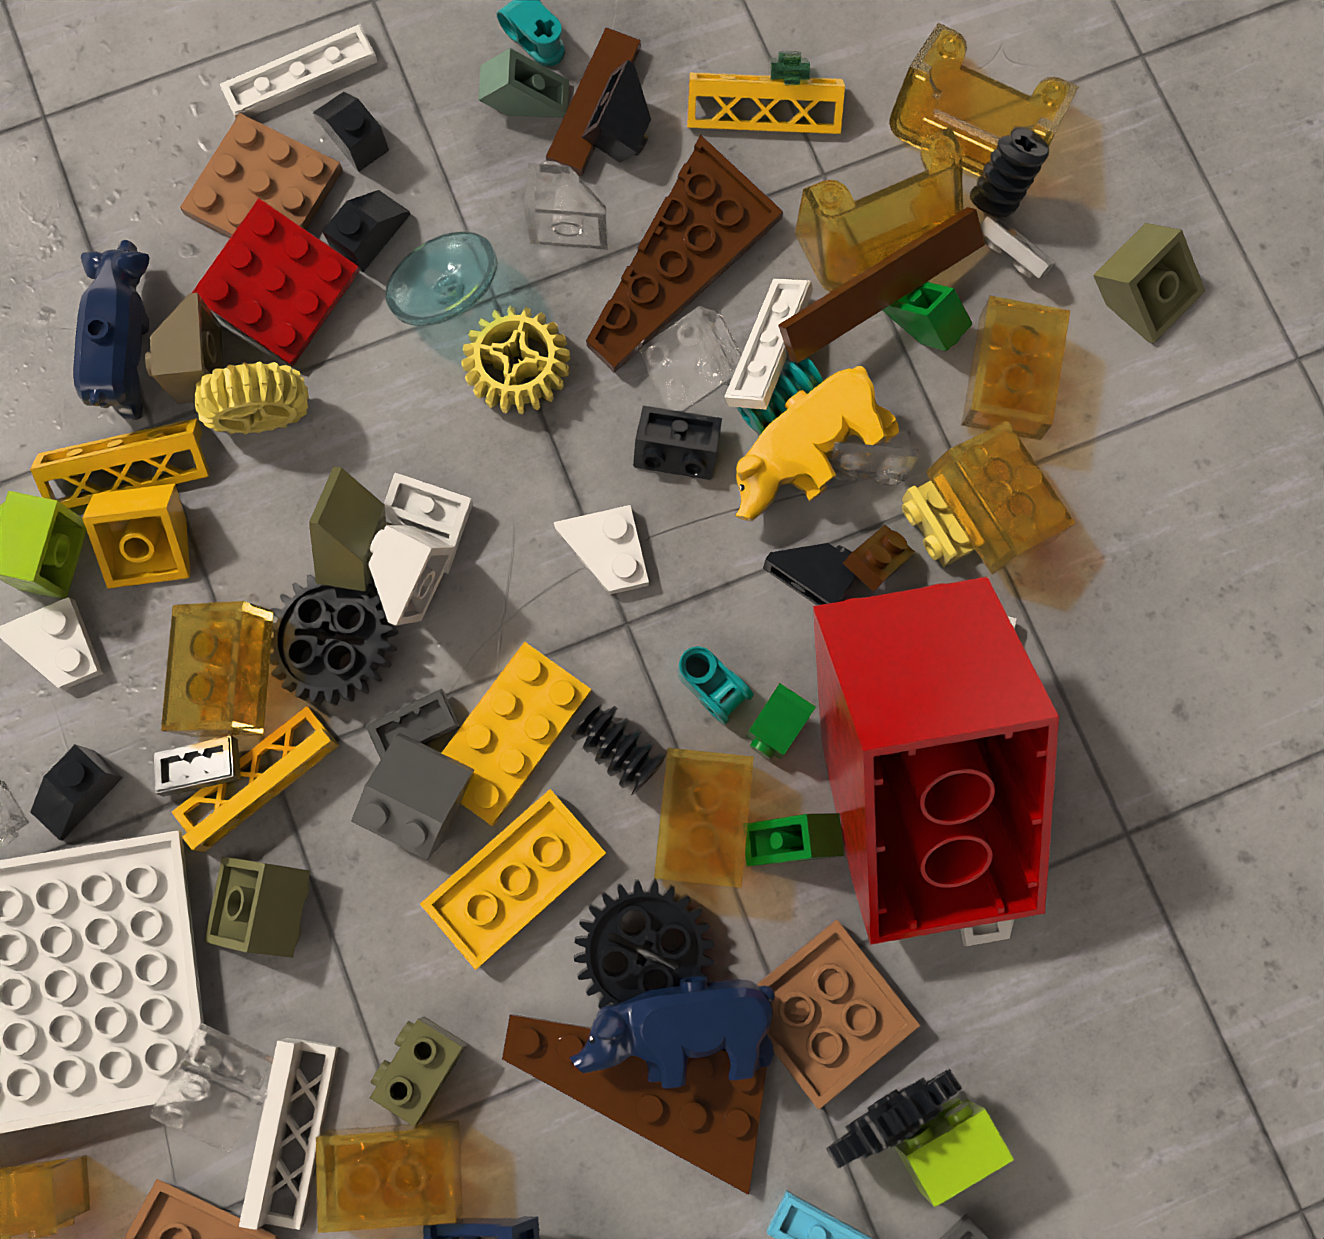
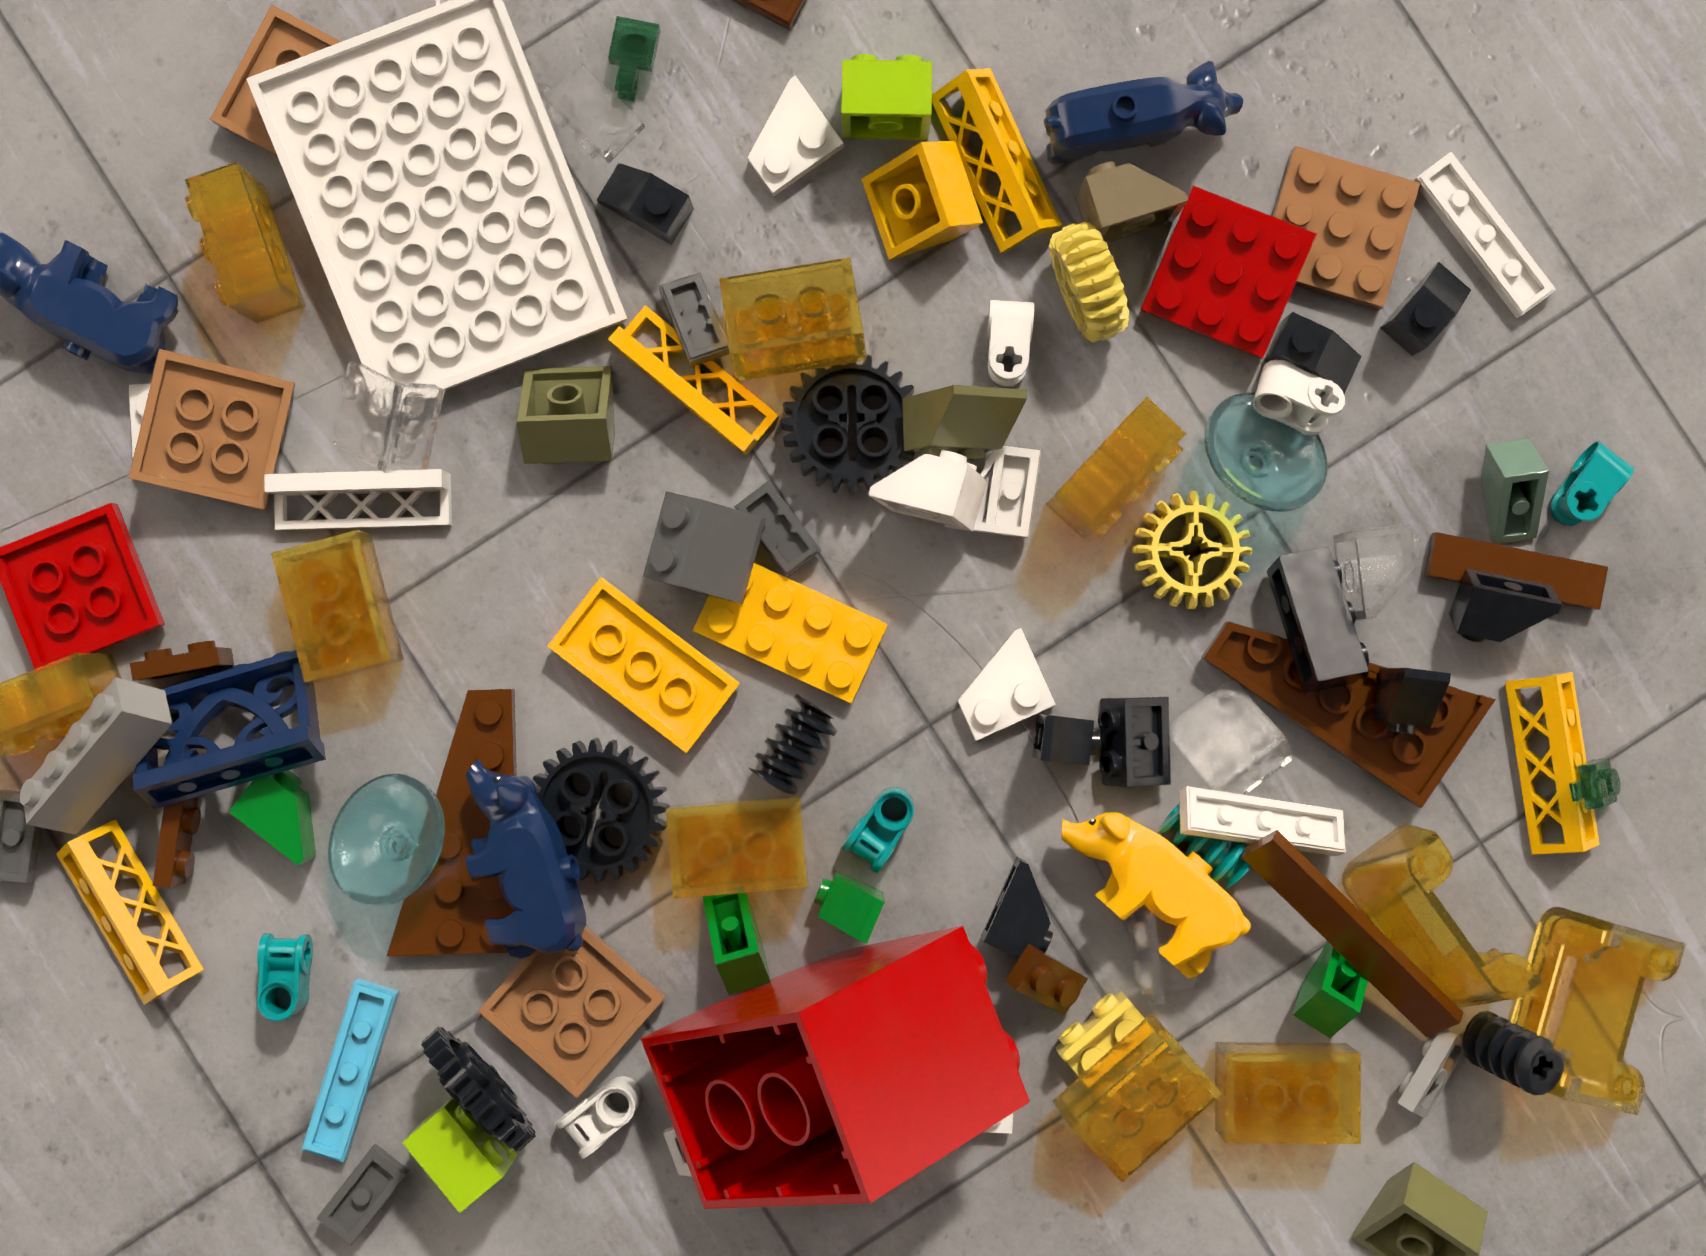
camera: 80 degrees right, 10 degrees up
(285, 480) = (1009, 335): none -> white piece
(397, 246) = (1293, 397): none -> white piece
(417, 1070) = (440, 610): olive brick -> none
(428, 405) = (1118, 470): none -> clear yellow brick
(599, 263) = (1318, 620): none -> brick
(620, 1185) = (370, 836): none -> clear light blue dish
(661, 501) = (1065, 739): none -> black slope
(682, 195) = (1409, 697): none -> black slope
(944, 1012) = (595, 1119): none -> white piece

